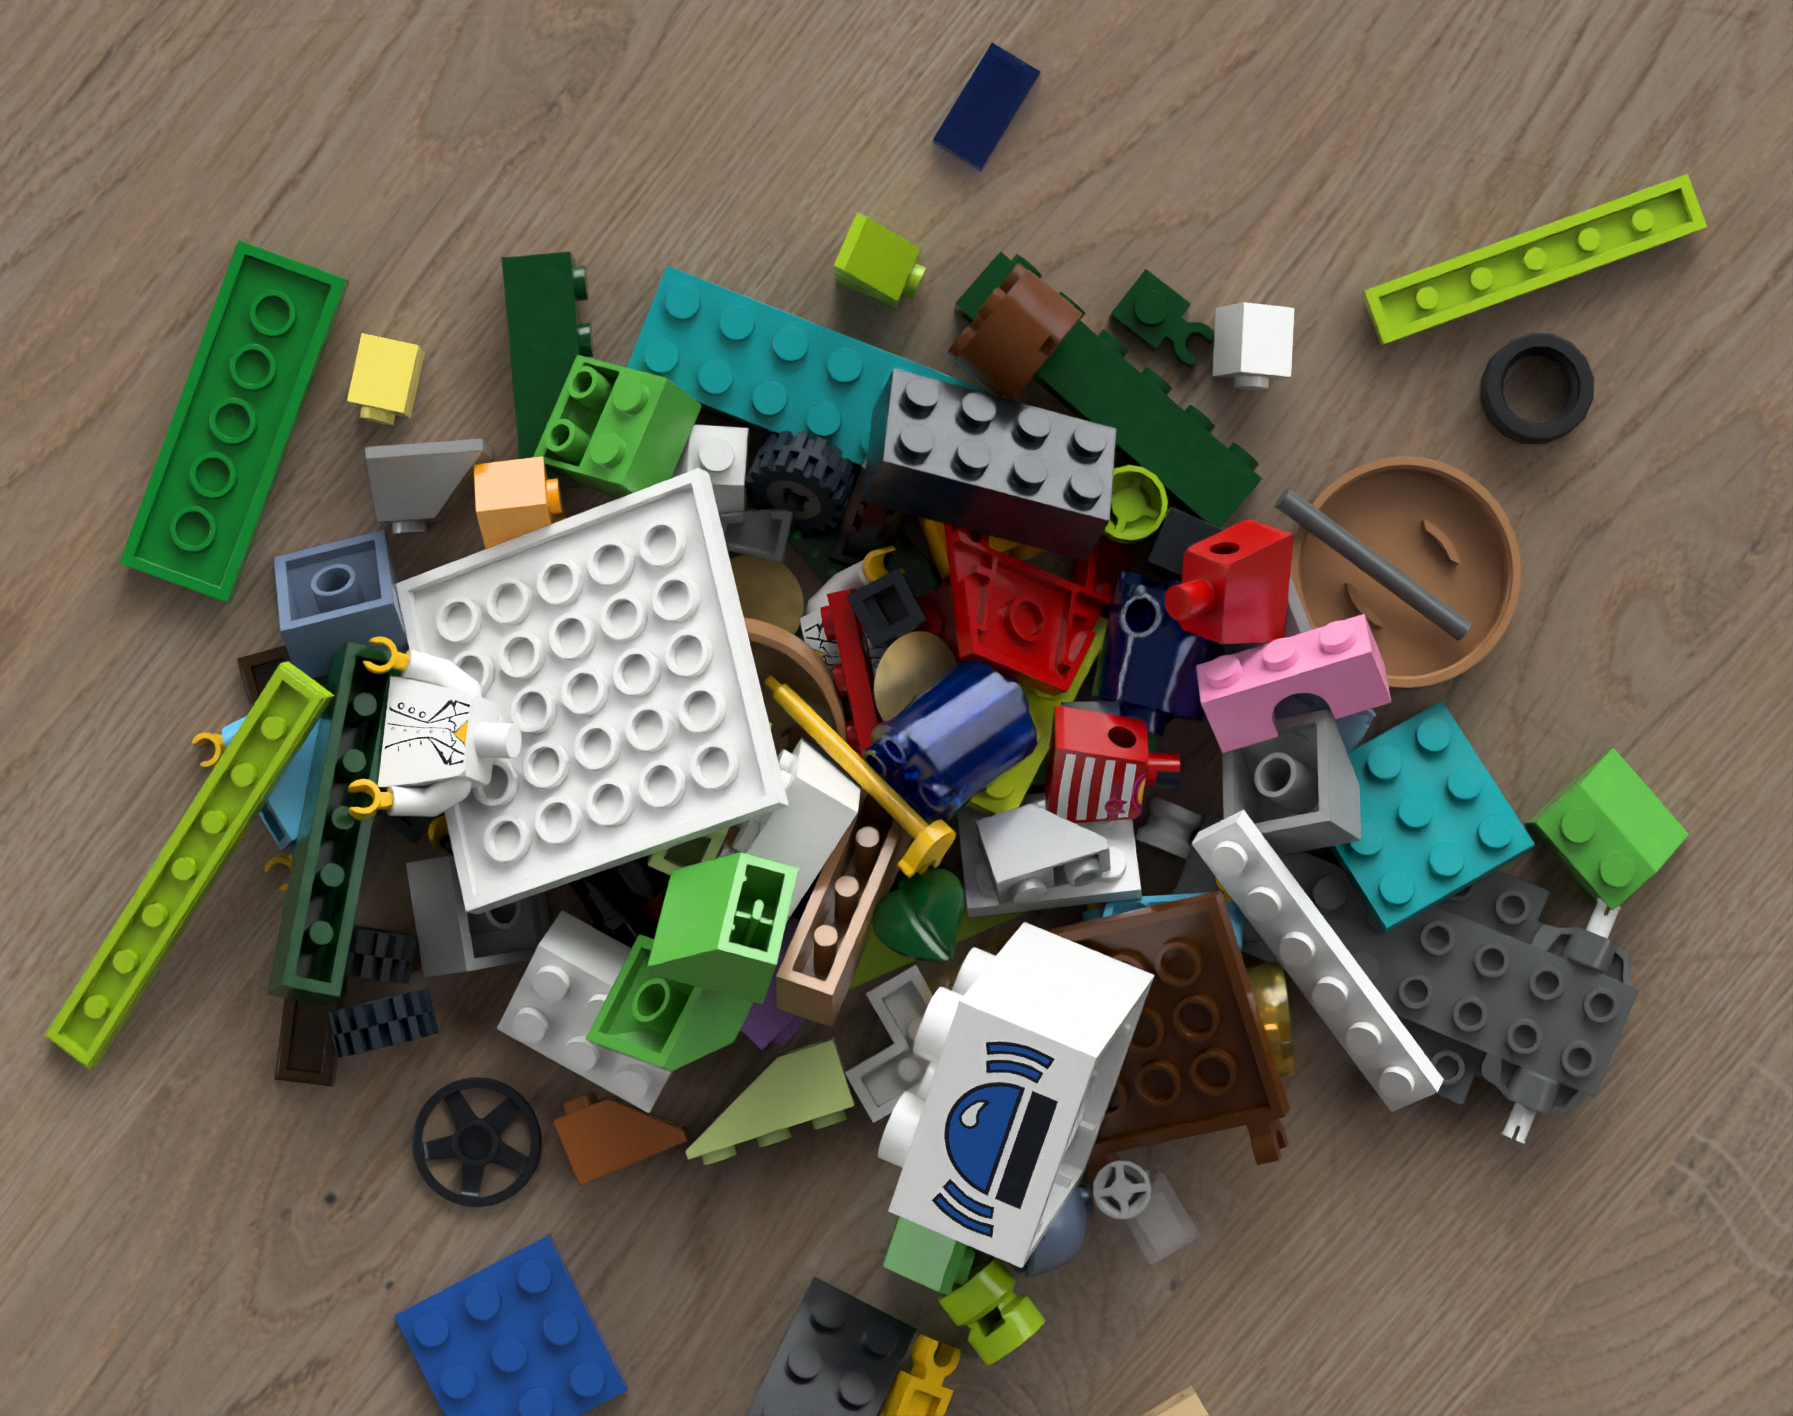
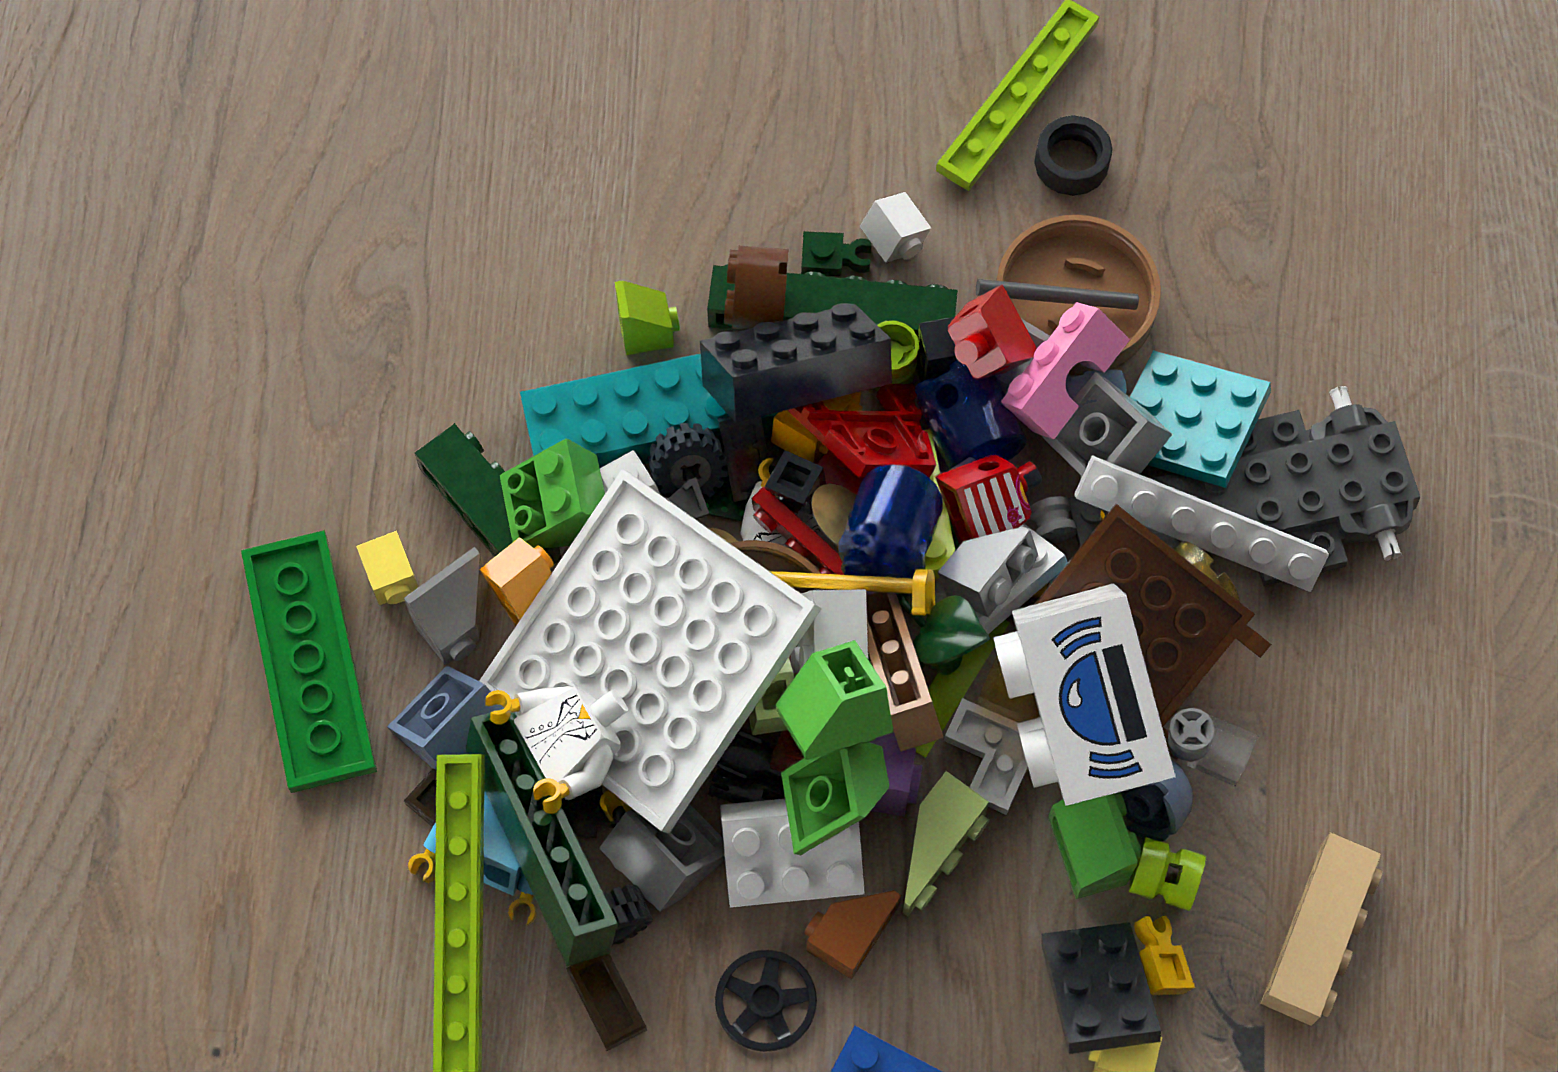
camera: 35 degrees left, 20 degrees down
(382, 1023) = (653, 955): black wheel -> none
(986, 107) = (647, 207): clear blue tile -> none
(1608, 830) = (1304, 361): bright green slope -> none

